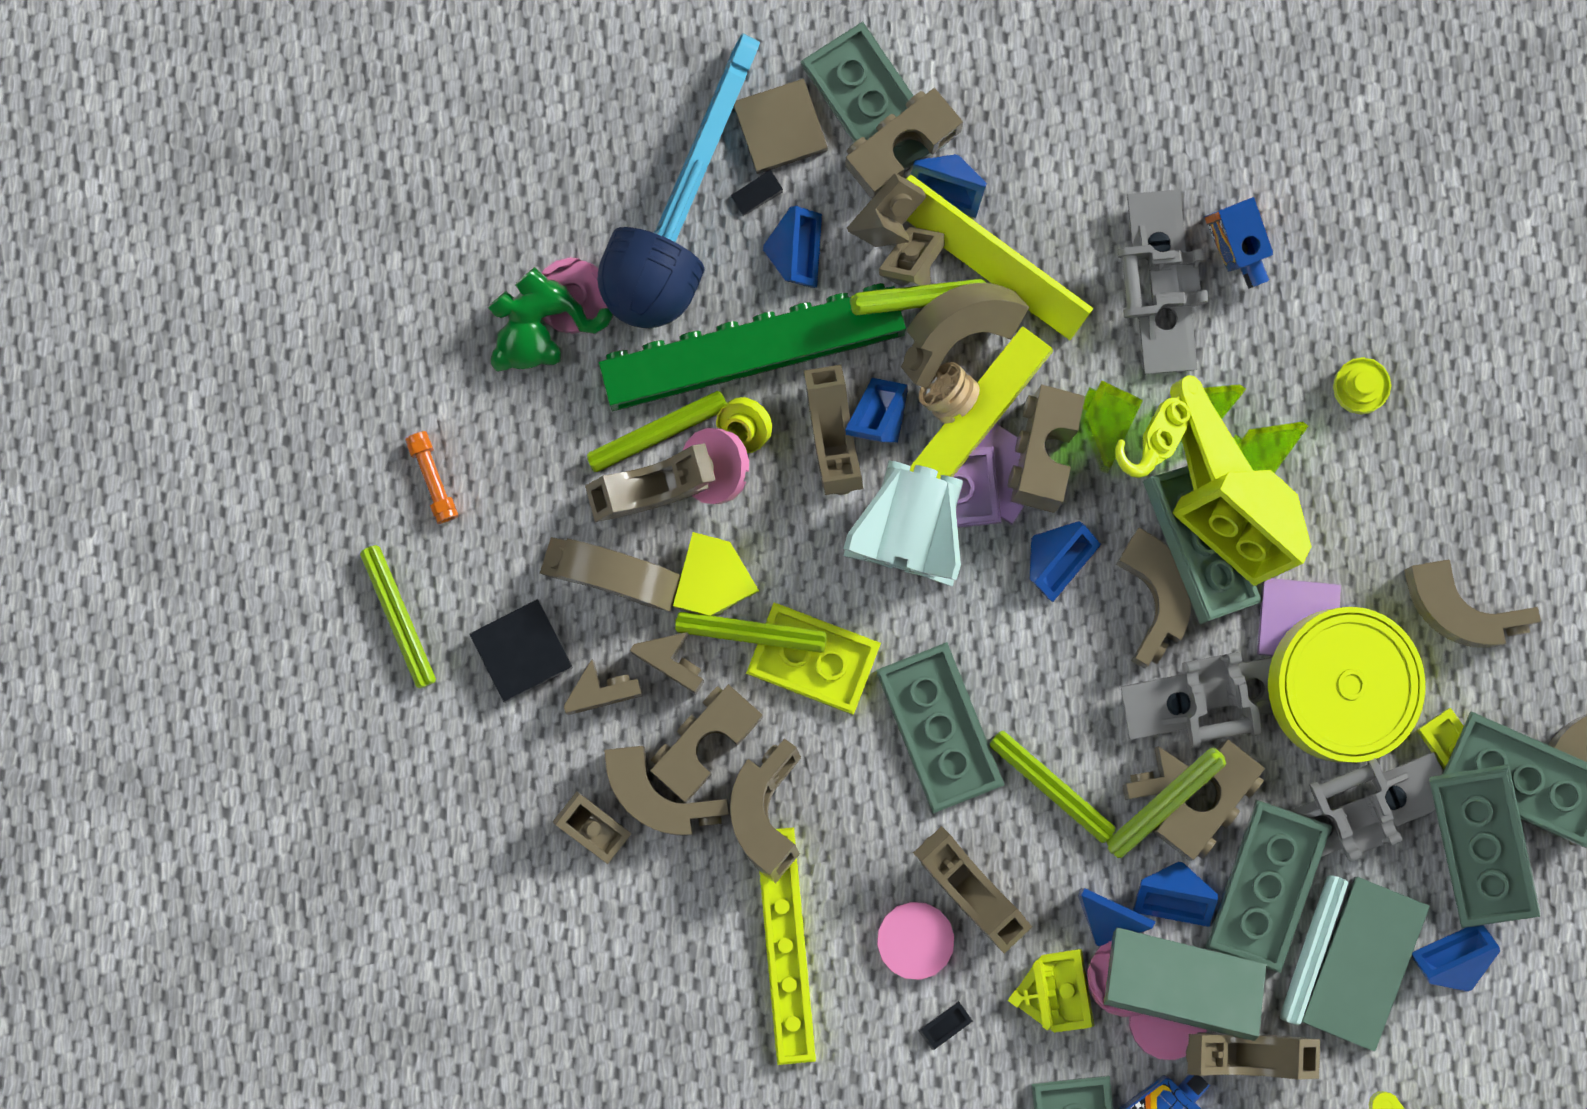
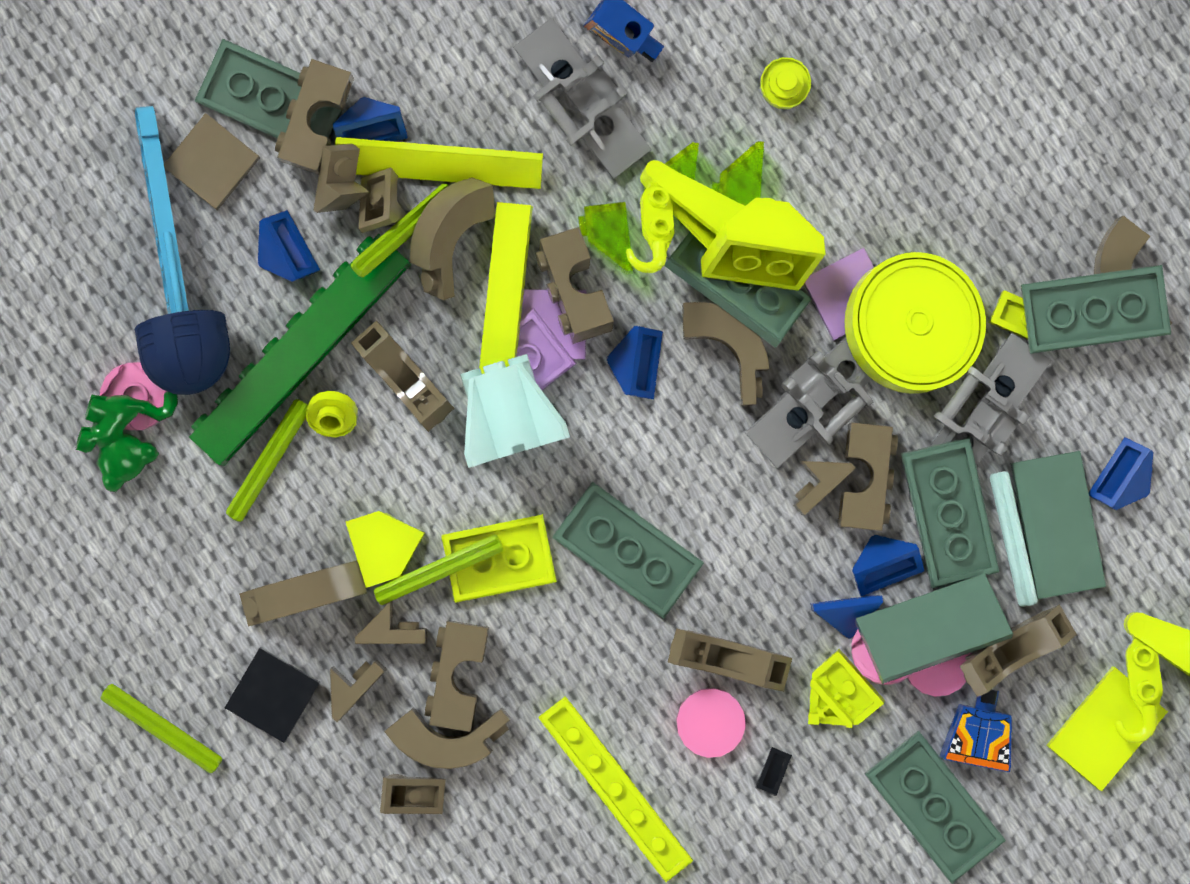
camera: 30 degrees left, 5 degrees up
(421, 448) = (94, 588): orange bar -> none
(652, 485) = (290, 506): dark tan arch -> none
(729, 464) = (329, 460): bright pink tile -> none
(749, 809) = (524, 705): dark tan arch -> none
(757, 192) = (226, 225): black piece -> none
(879, 412) = (429, 338): blue slope -> none
(950, 393) = (474, 289): tan wheel -> none
(1052, 786) = (741, 540): lime axle -> none
(1166, 802) = (834, 500): lime axle -> none
(1445, 611) = (959, 219): dark tan arch -> none
(1485, 846) = (1094, 380): sand green tile -> none

